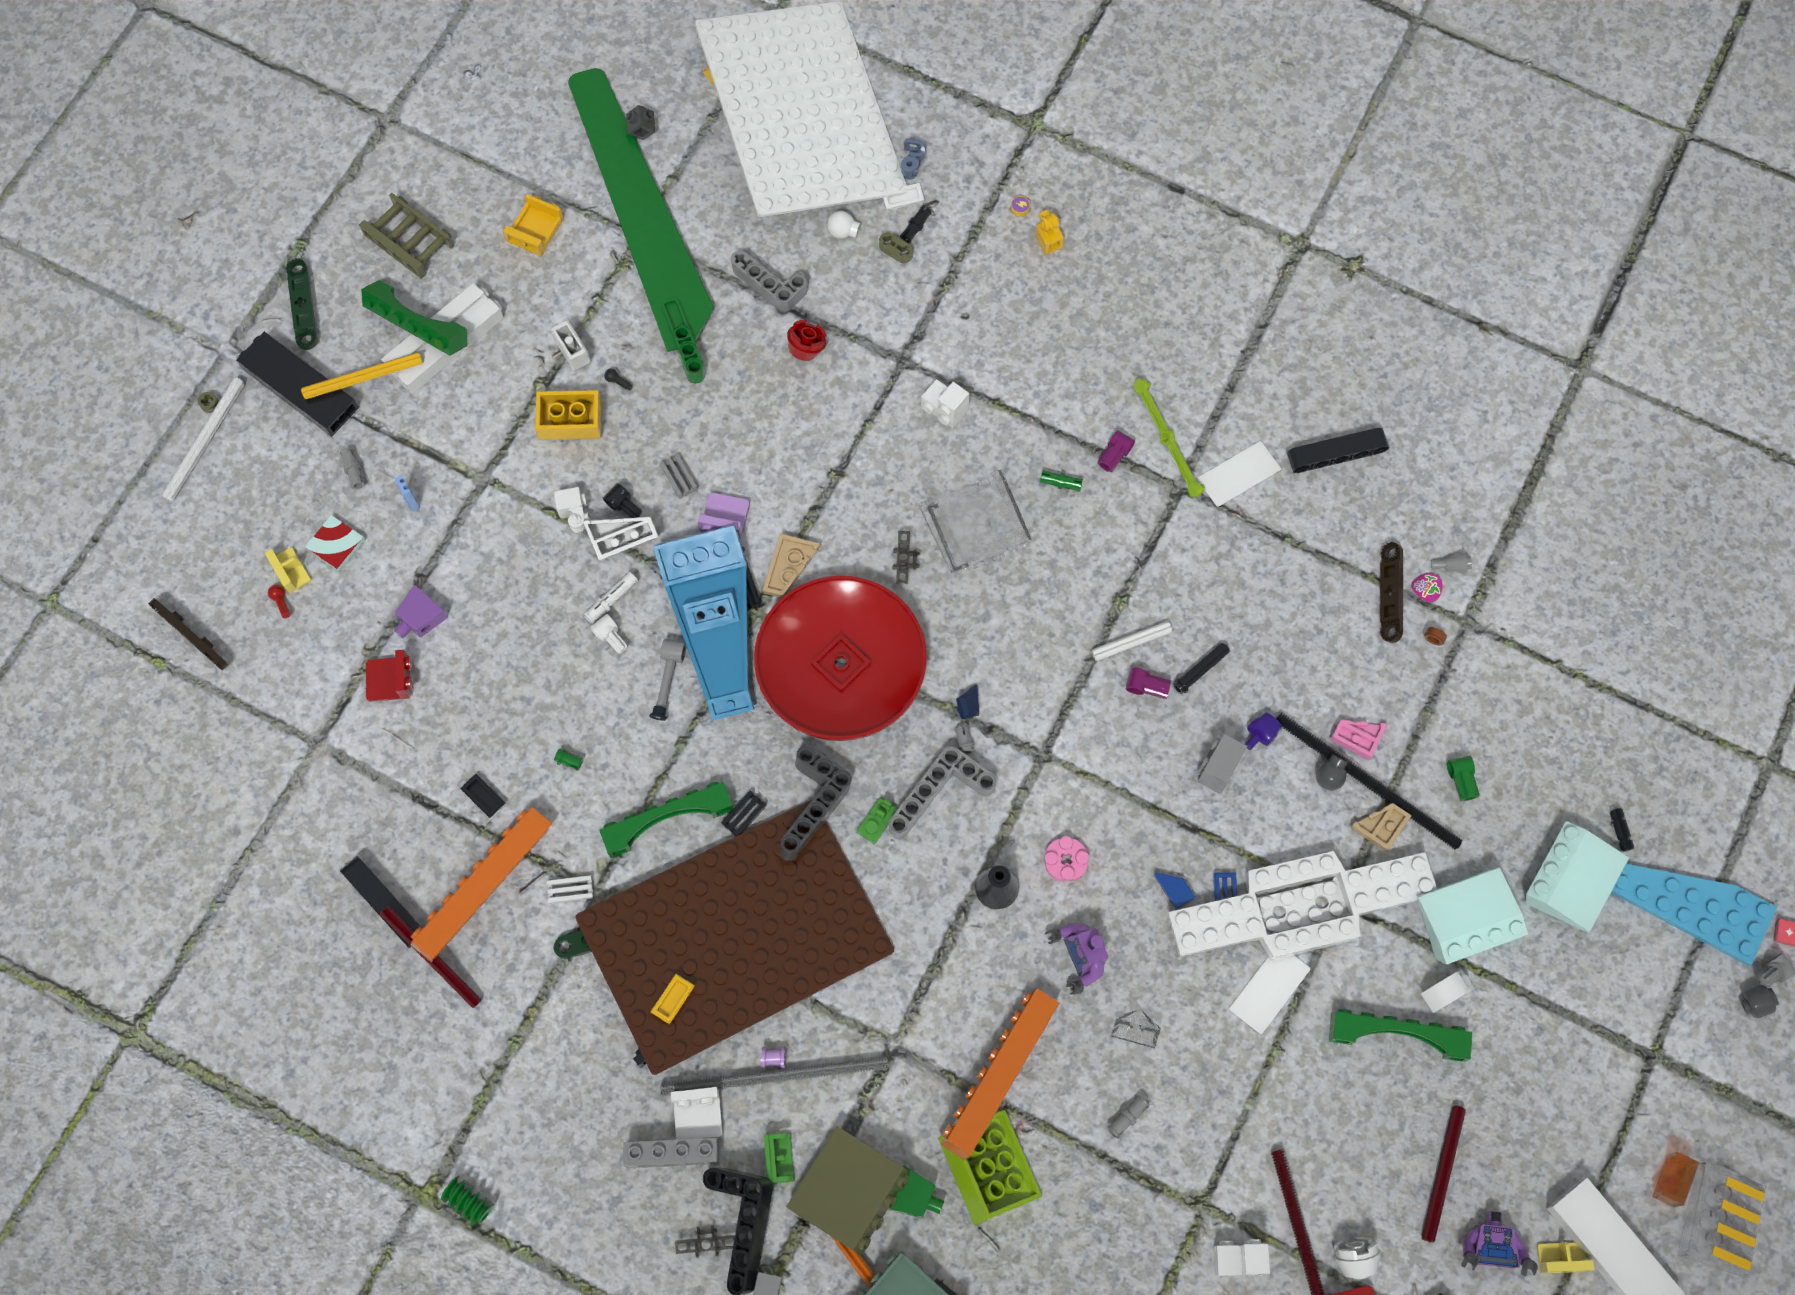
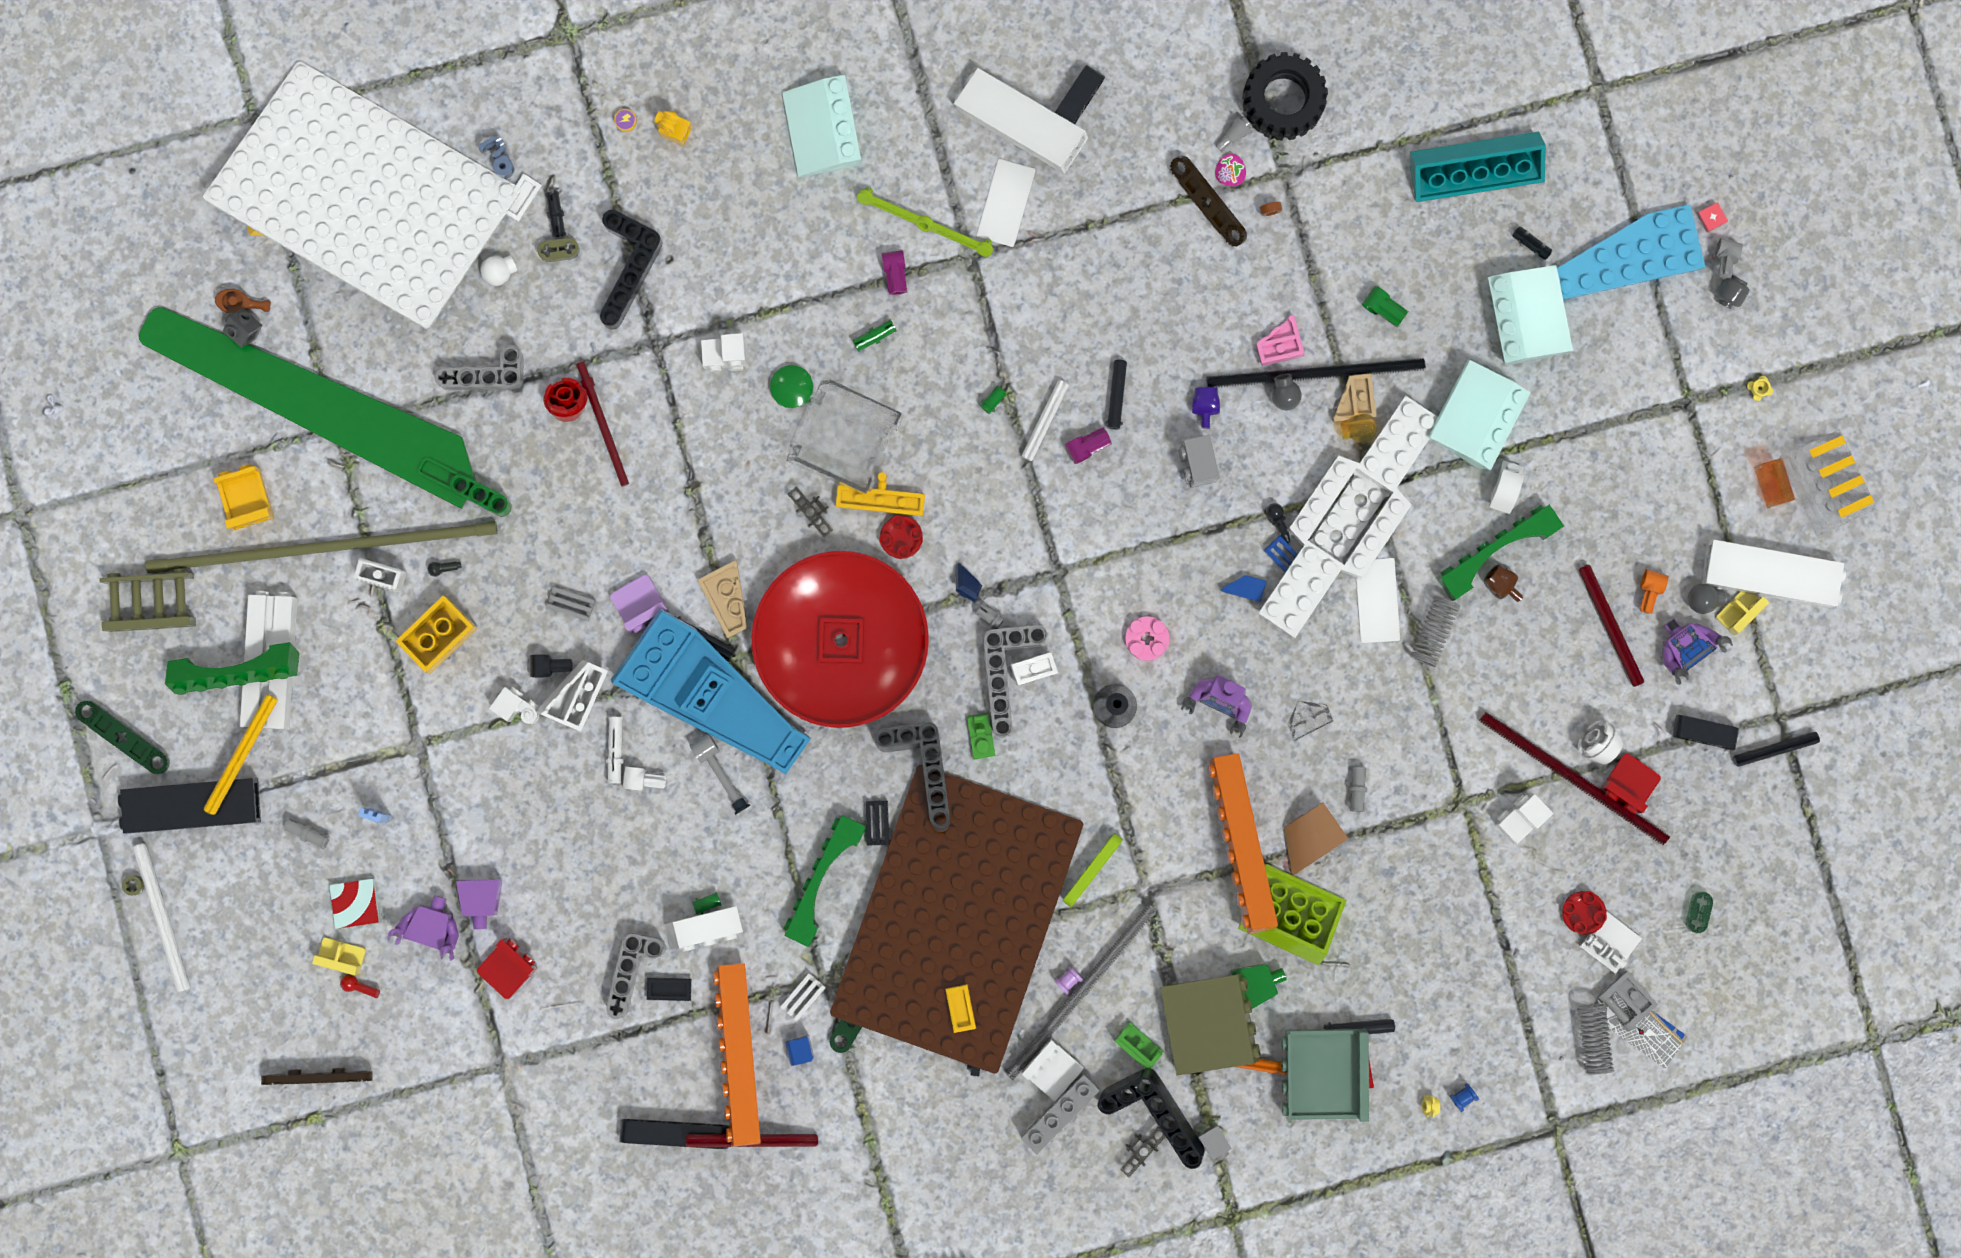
camera: 40 degrees left, 15 degrees up
(365, 601) = (429, 927): none -> medium lavender torso
(466, 761) = (630, 976): none -> light grey beam
(529, 925) = (799, 1050): none -> blue piece
(549, 773) = (703, 929): none -> white wedge
(655, 103) = (234, 300): none -> dark orange piece
(665, 375) = (165, 564): none -> olive piece
(831, 347) = (588, 384): none -> dark red bar
(868, 991) = (1092, 870): none -> lime beam
(932, 297) = (631, 267): none -> black beam
(951, 630) = (901, 537): none -> red dish
(961, 592) = (881, 500): none -> yellow plate
(961, 805) = (1033, 669): none -> white plate
(970, 465) = (791, 386): none -> green dish
(1059, 1120) = (1312, 837): none -> medium nougat slope
(1106, 594) = (993, 400): none -> green pin
(1154, 318) = (822, 126): none -> light aqua slope
(1246, 853) = (1275, 513): none -> black bar
(1300, 424) = (1020, 120): none -> white brick
(1326, 1044) = (1426, 659): none -> light grey piece
(1367, 847) = (1359, 428): none -> clear yellow piece
(1382, 1061) = (1502, 582): none -> reddish brown piece
(1504, 1171) = (1653, 585): none -> orange axle
(1530, 547) = (1284, 68): none -> black tyre
(1541, 1221) = (1705, 598): none -> dark grey piece
(1625, 739) = (1478, 166): none -> teal slope
(1728, 1092) = (1761, 382): none -> light yellow plate

